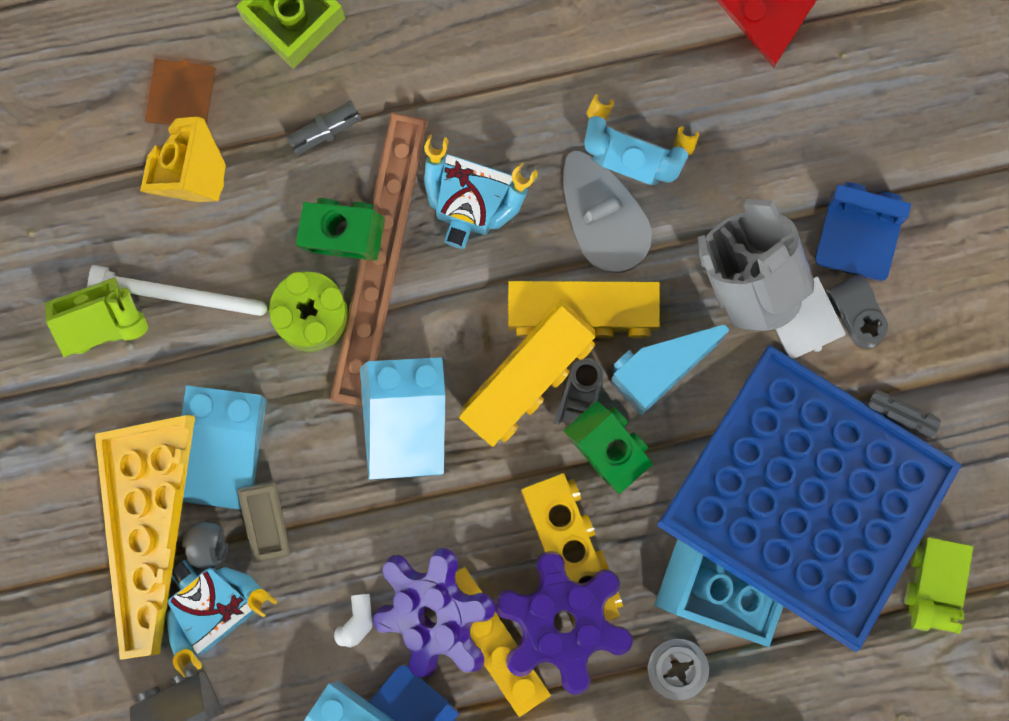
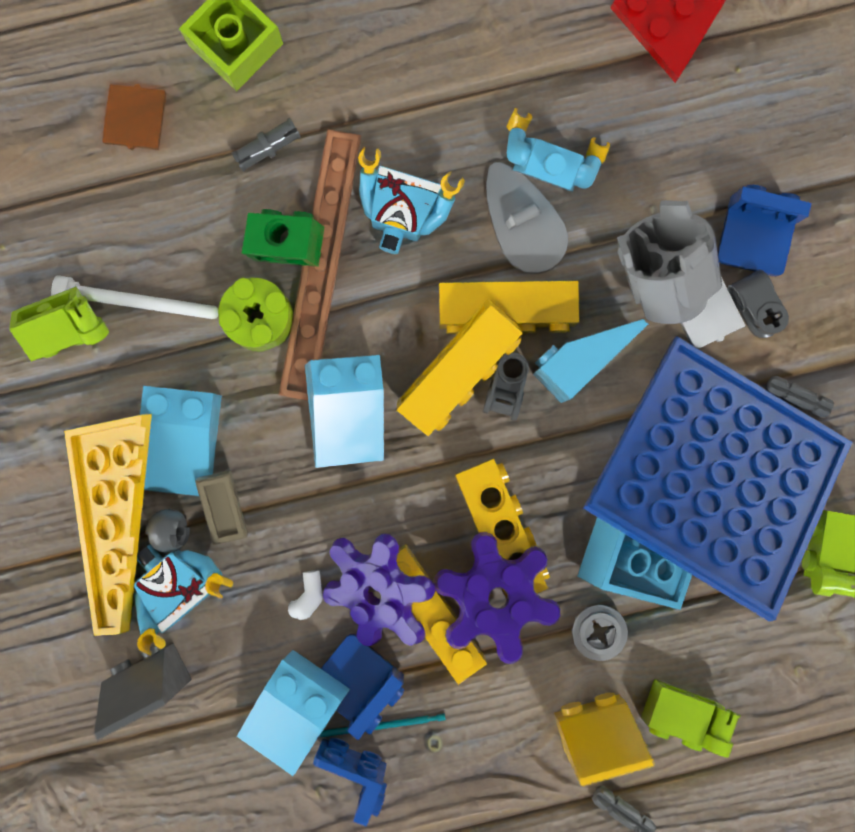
camera: 10 degrees left, 5 degrees up
(186, 164) = (140, 180): yellow slope -> none
(593, 434) = (535, 433): green brick -> none

